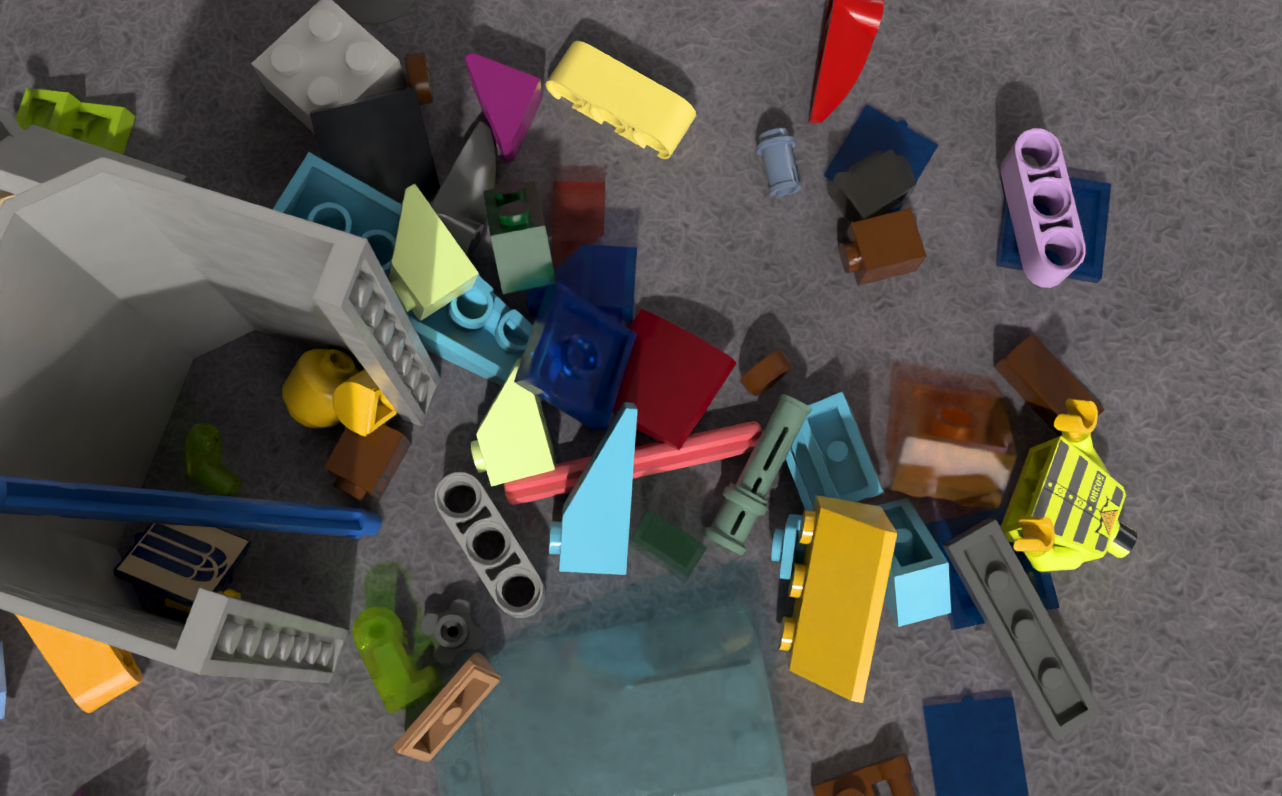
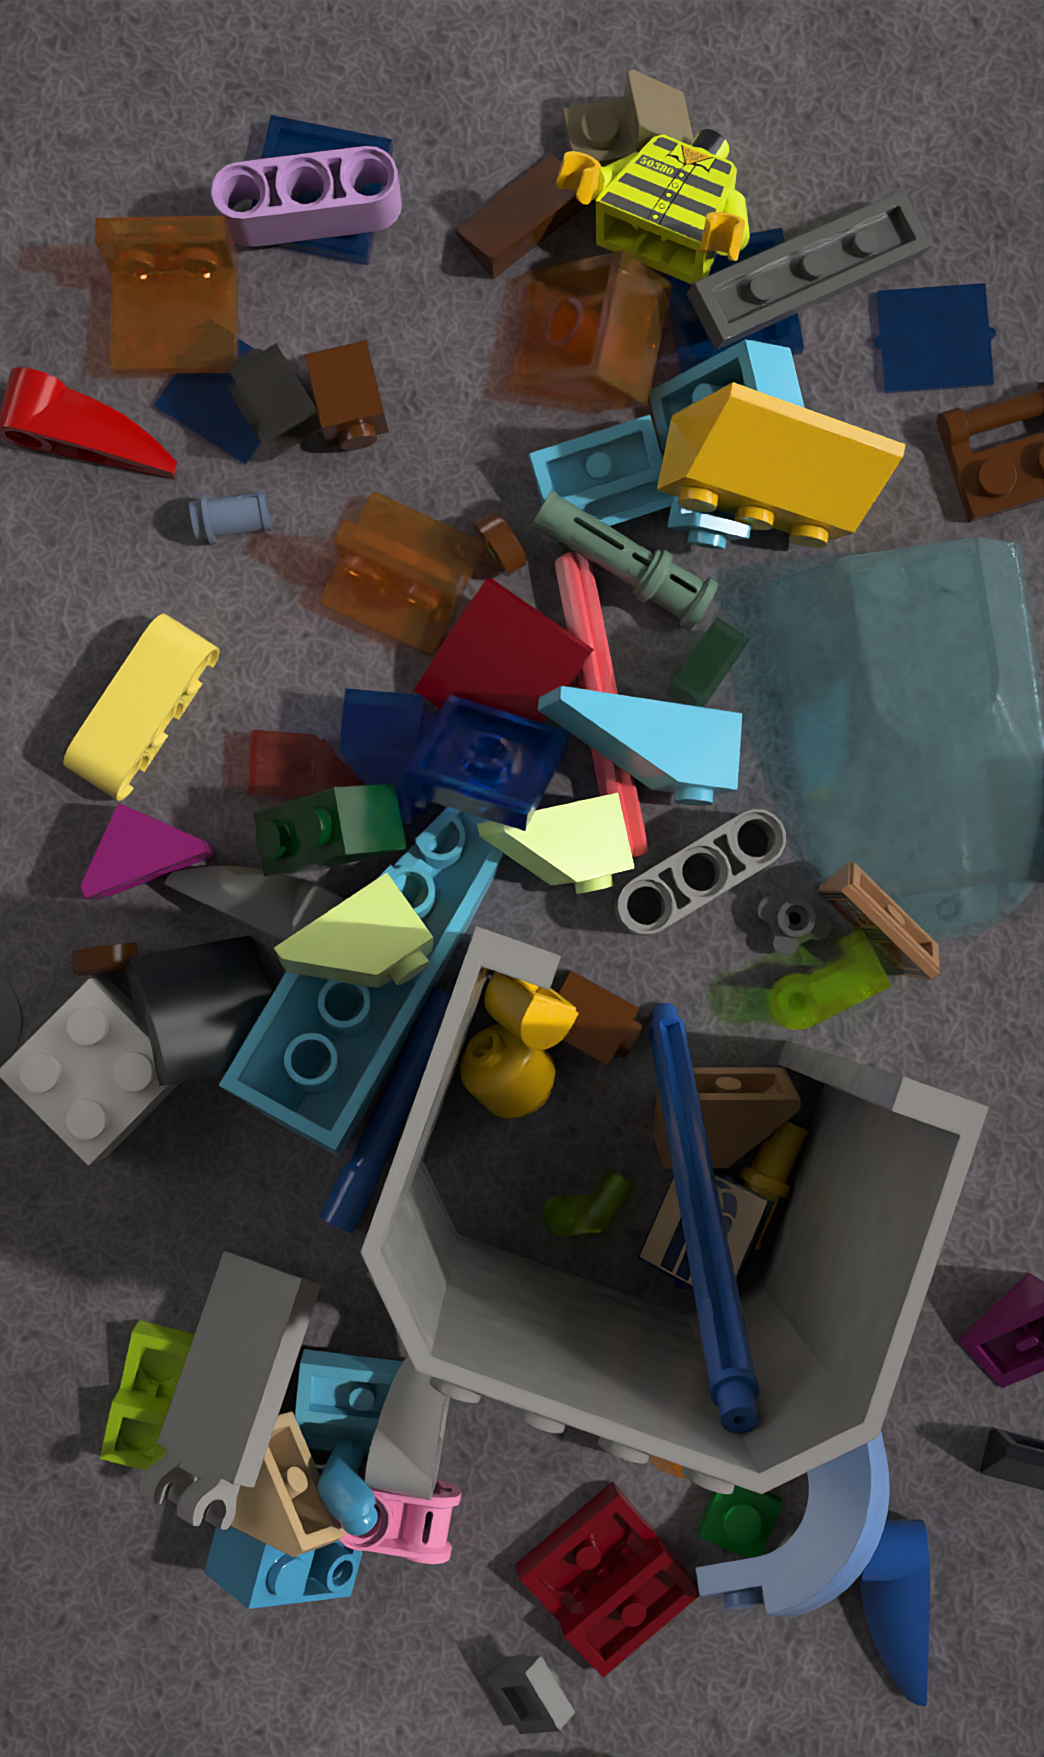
camera: 85 degrees left, 10 degrees up
(282, 569) = (737, 1110): none -> medium nougat slope
(739, 296) = (401, 572): none -> clear orange bracket
(954, 111) = (171, 293): none -> clear orange bracket
(1133, 463) = (627, 123): none -> dark tan slope

